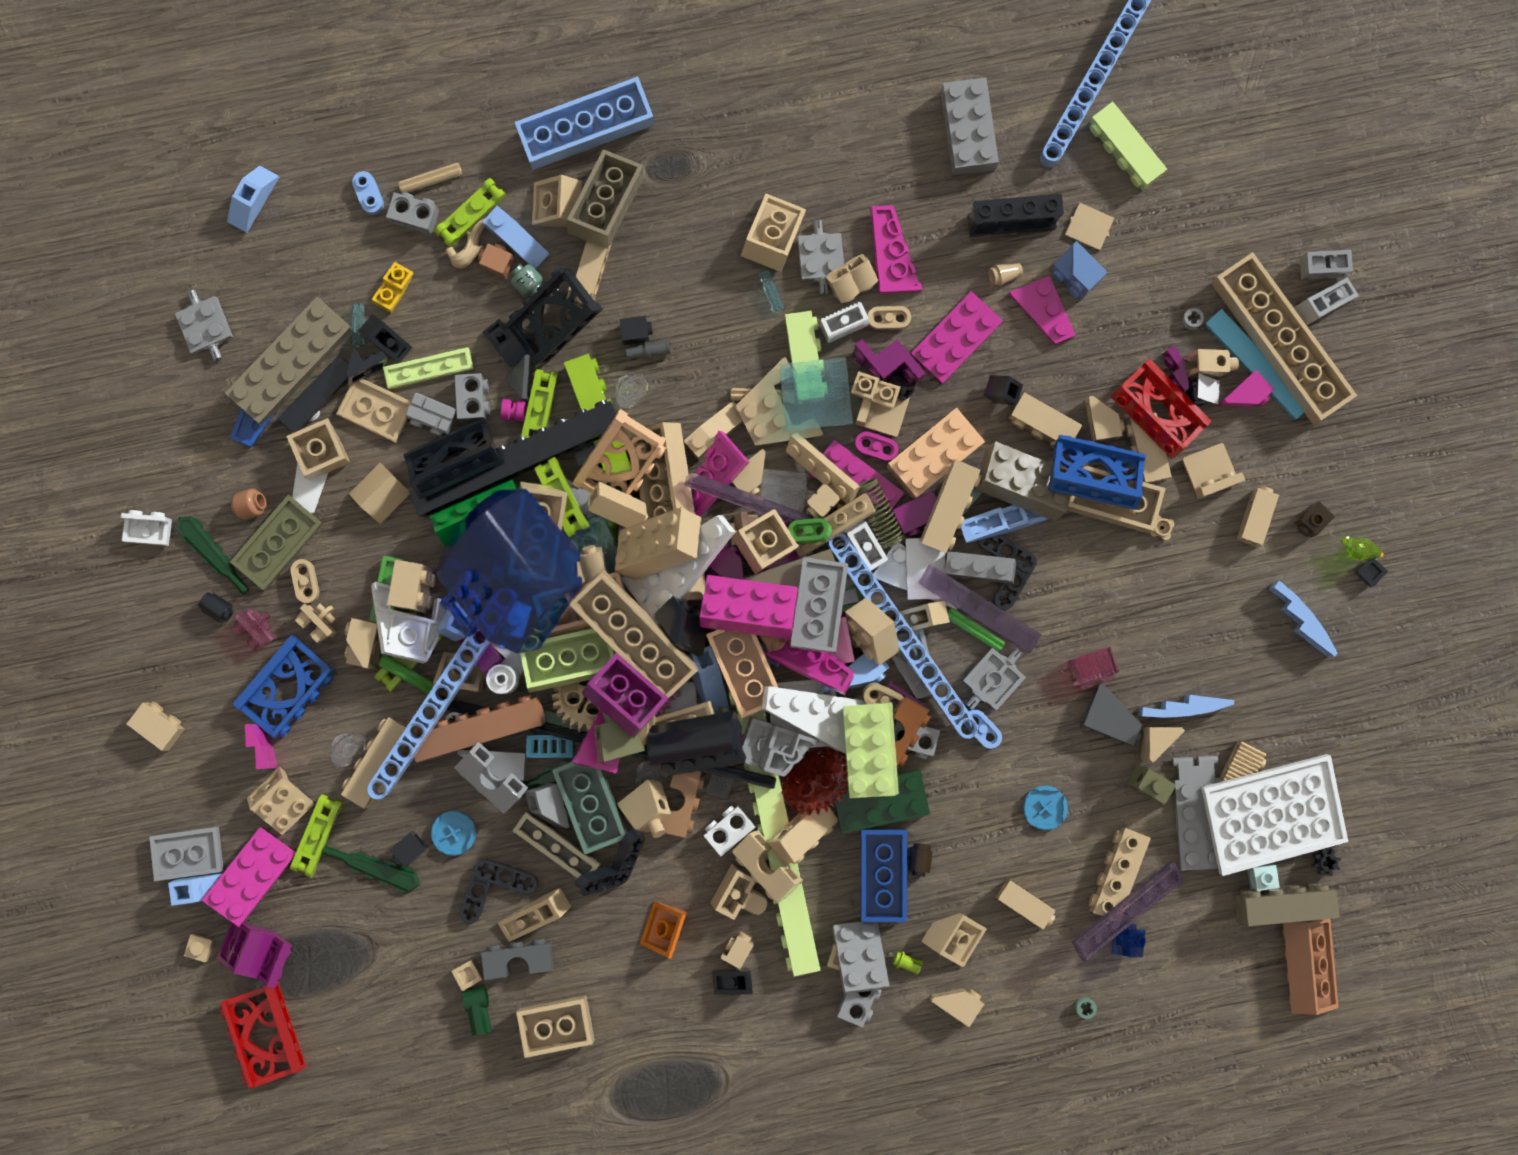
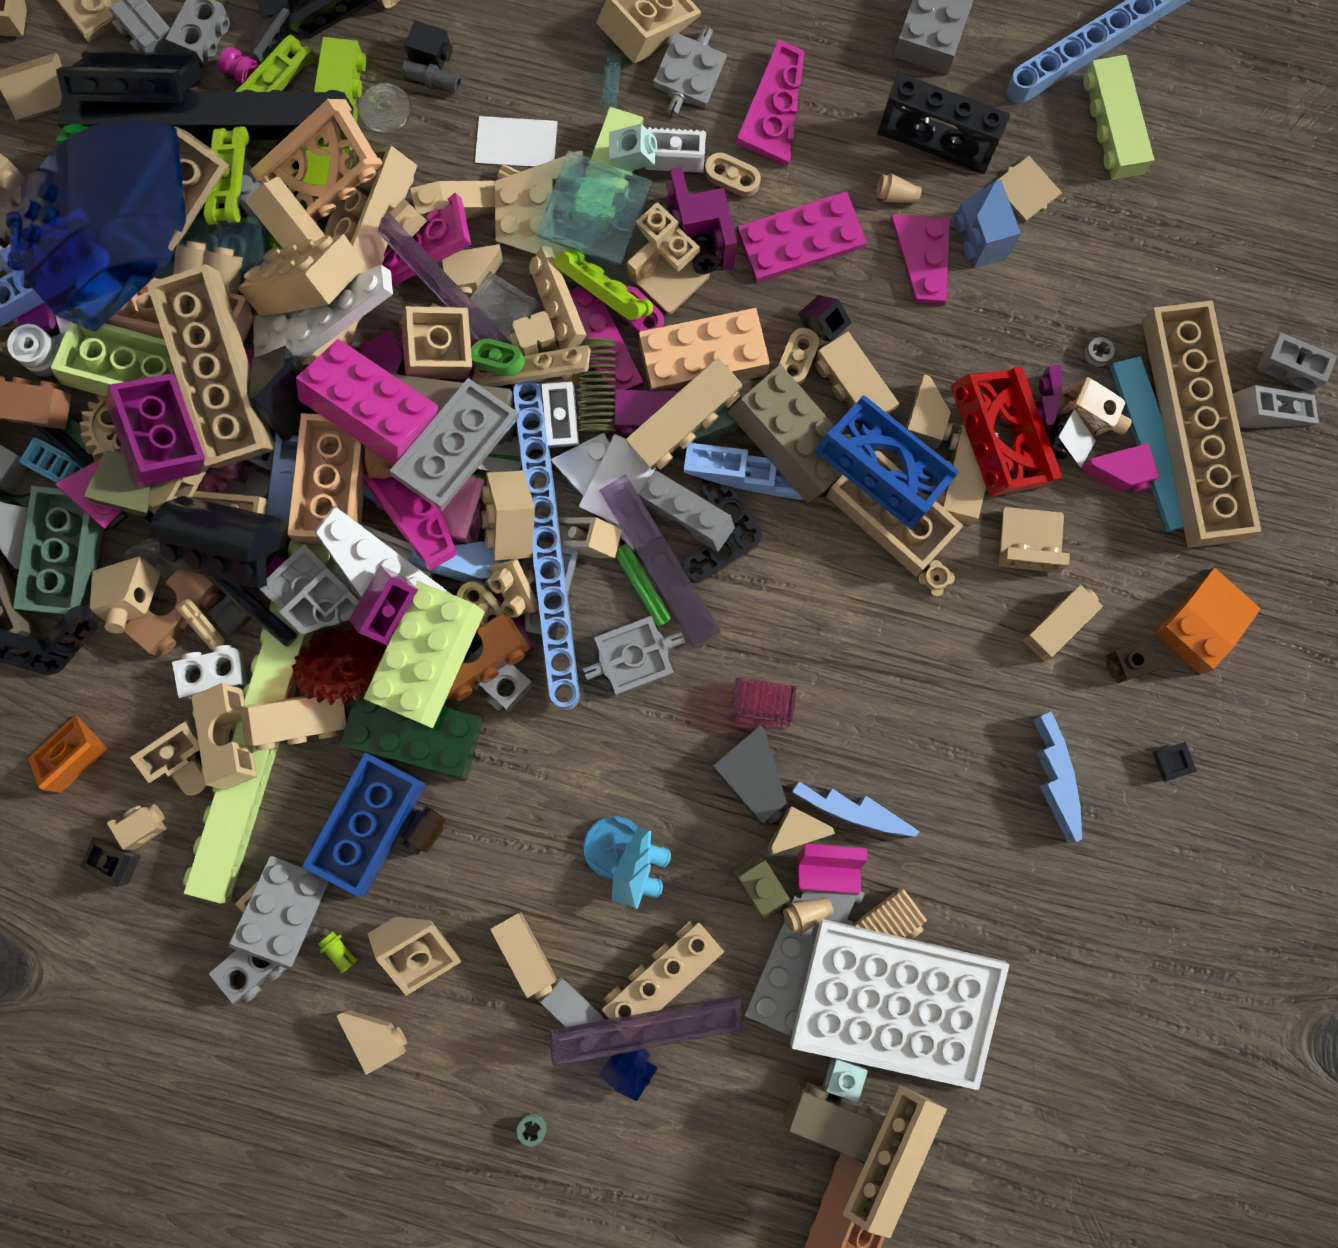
camera: 25 degrees right, 5 degrees down
(695, 464) = (408, 217): none -> tan plate
(706, 802) = (200, 623): none -> tan axle
(728, 366) = (515, 141): none -> white sticker
(812, 342) = (632, 147): none -> light aqua brick
(829, 732) = (383, 605): none -> magenta brick
(847, 444) = (595, 281): none -> lime plate
(852, 278) = (712, 107): tan brick -> none
(896, 674) = (514, 586): none -> tan hips
(984, 727) = (588, 710): light blue plate -> none
(997, 424) = (798, 358): none -> tan plate
(1068, 816) = (632, 872): none -> medium azure connector
(1071, 921) = (569, 1005): none -> light grey slope
(1189, 752) = (830, 869): none -> dark pink panel
(1189, 789) = (806, 914): none -> tan cone
(1322, 911) = (894, 1162): none -> tan brick
(1330, 866) = (934, 1092): black gear -> none
(1350, 468) = (1208, 622): none -> orange slope
(1361, 548) = (1176, 725): clear neon green animal -> none

